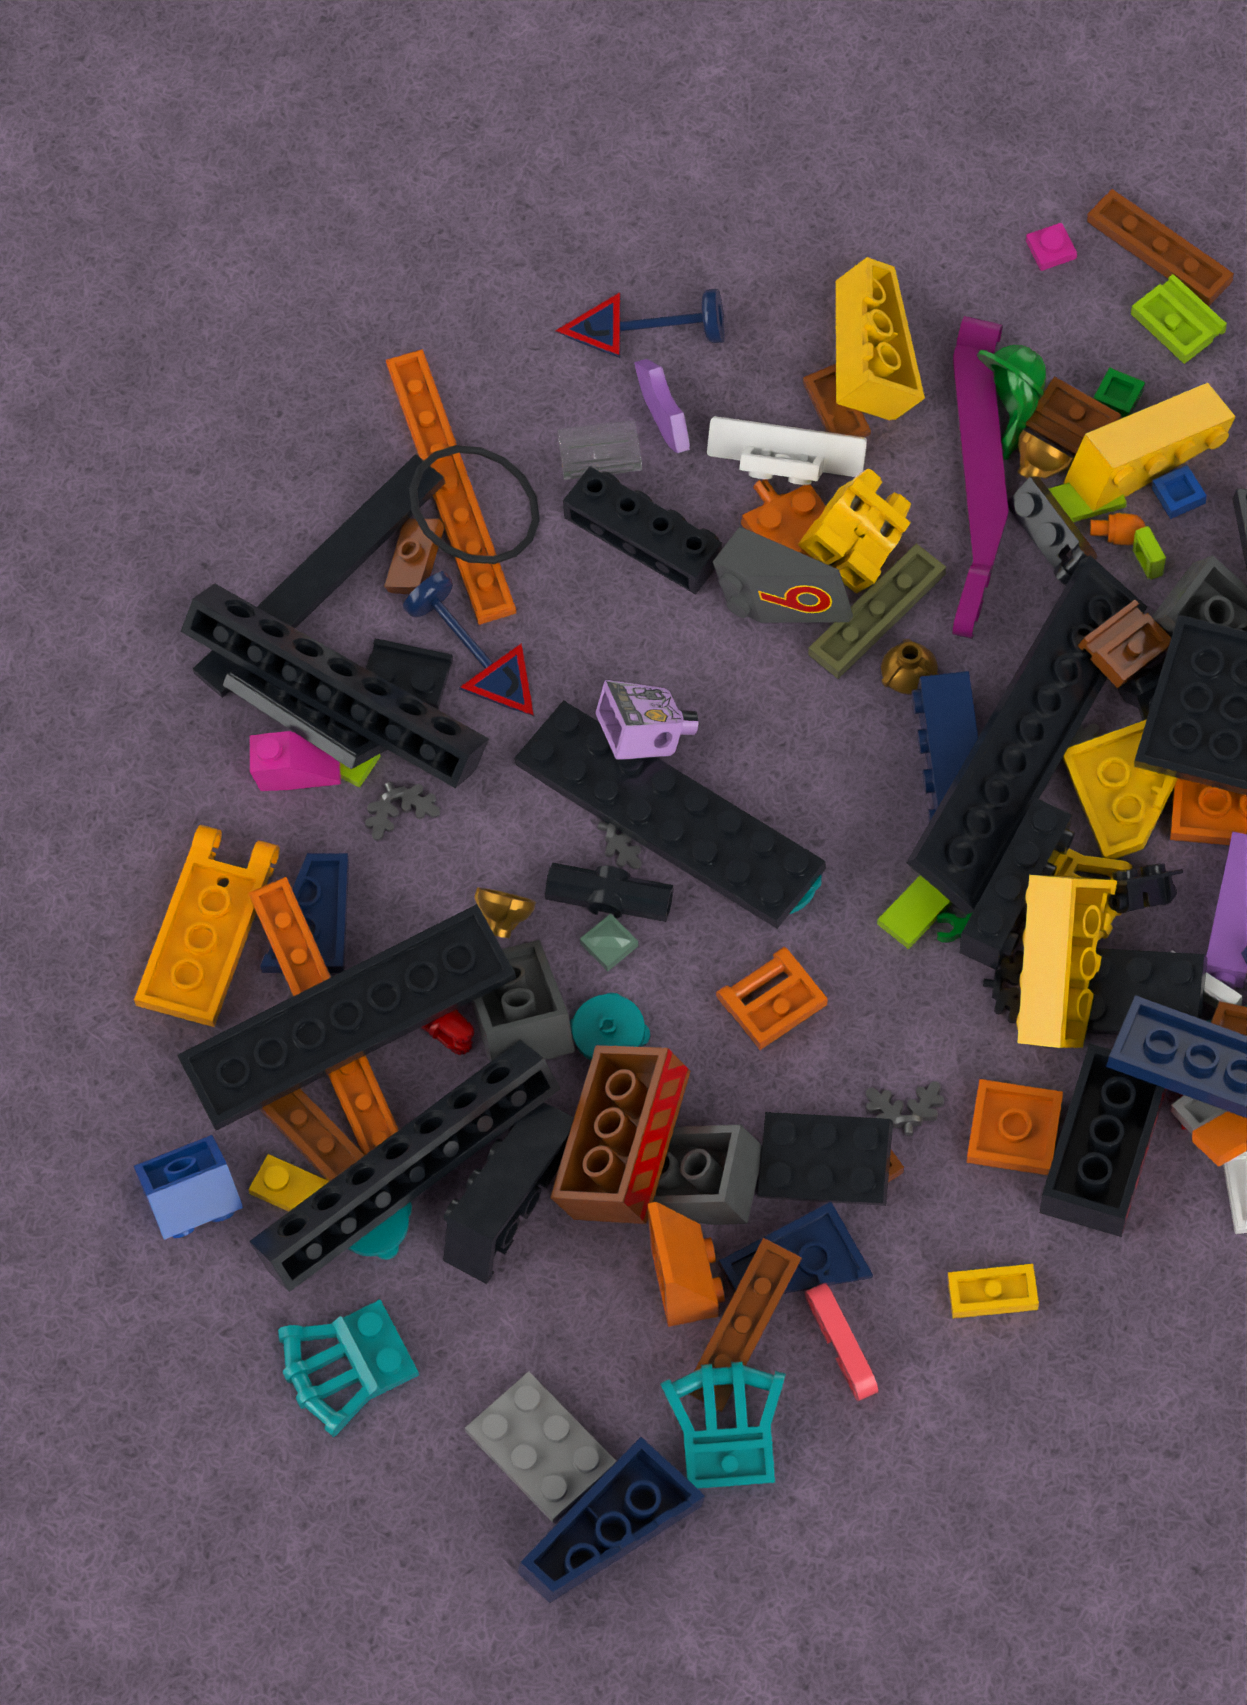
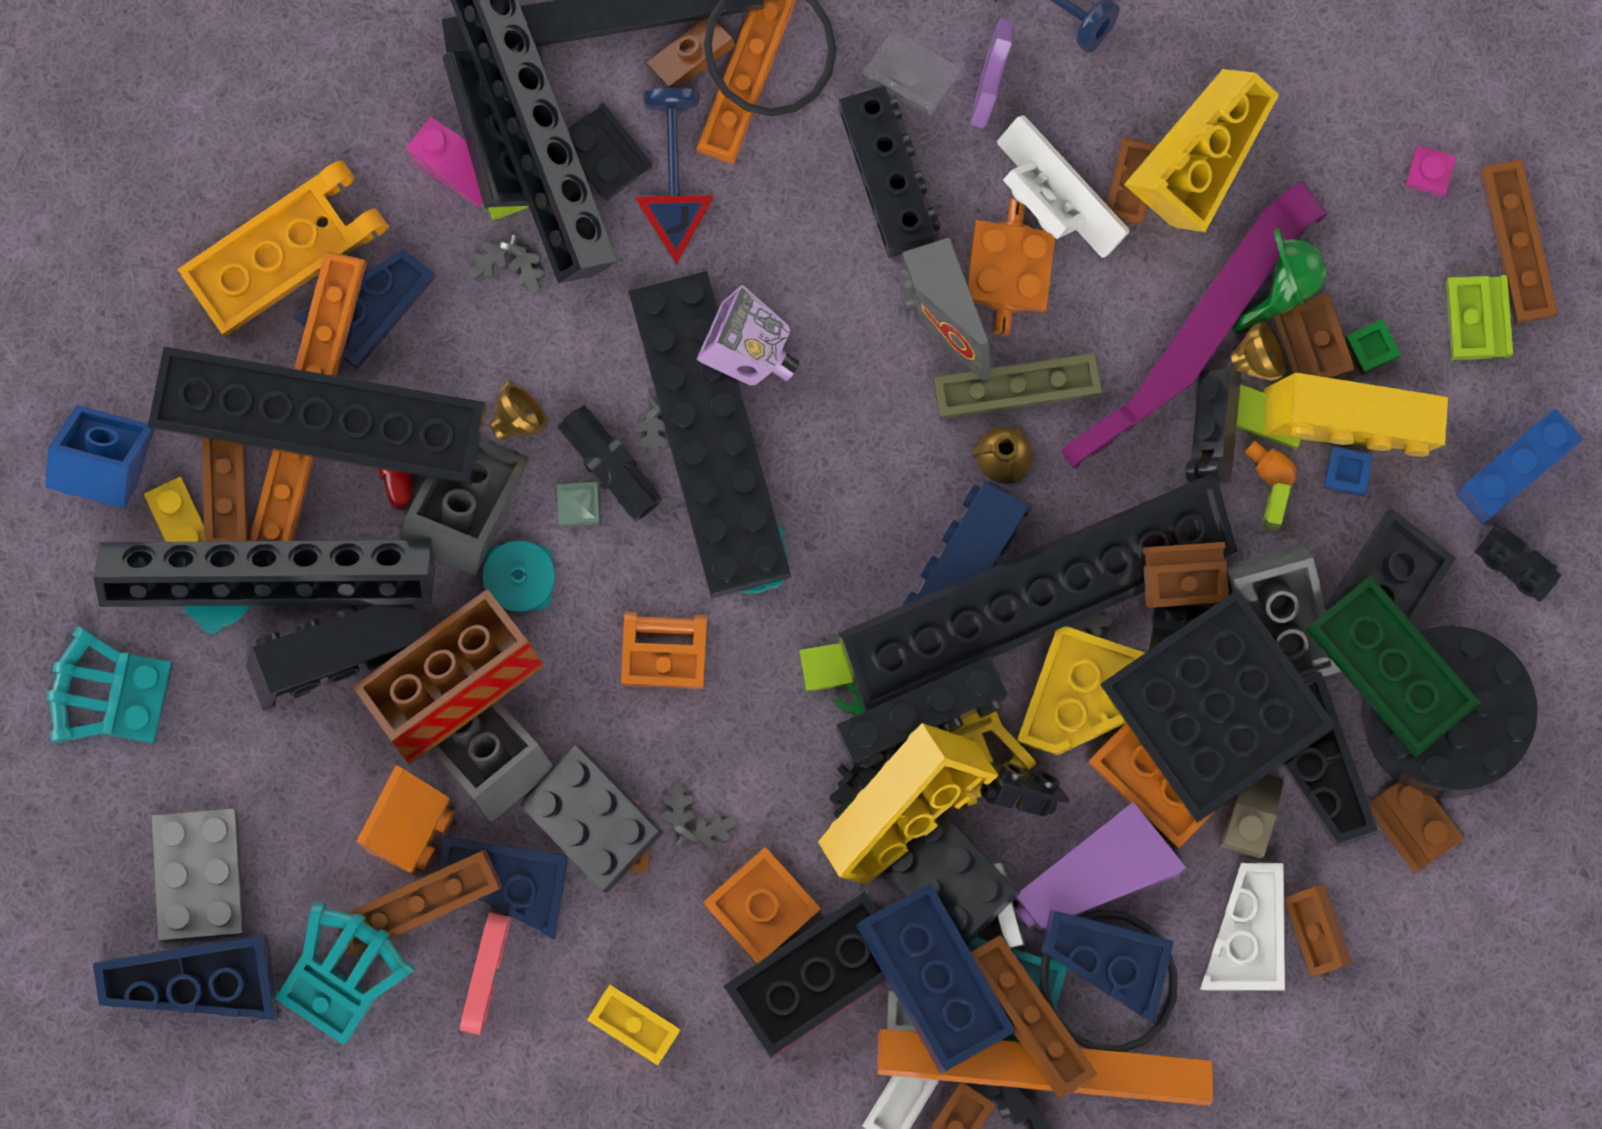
camera: 35 degrees right, 15 degrees up
(858, 530) = (1030, 295): yellow hips -> none

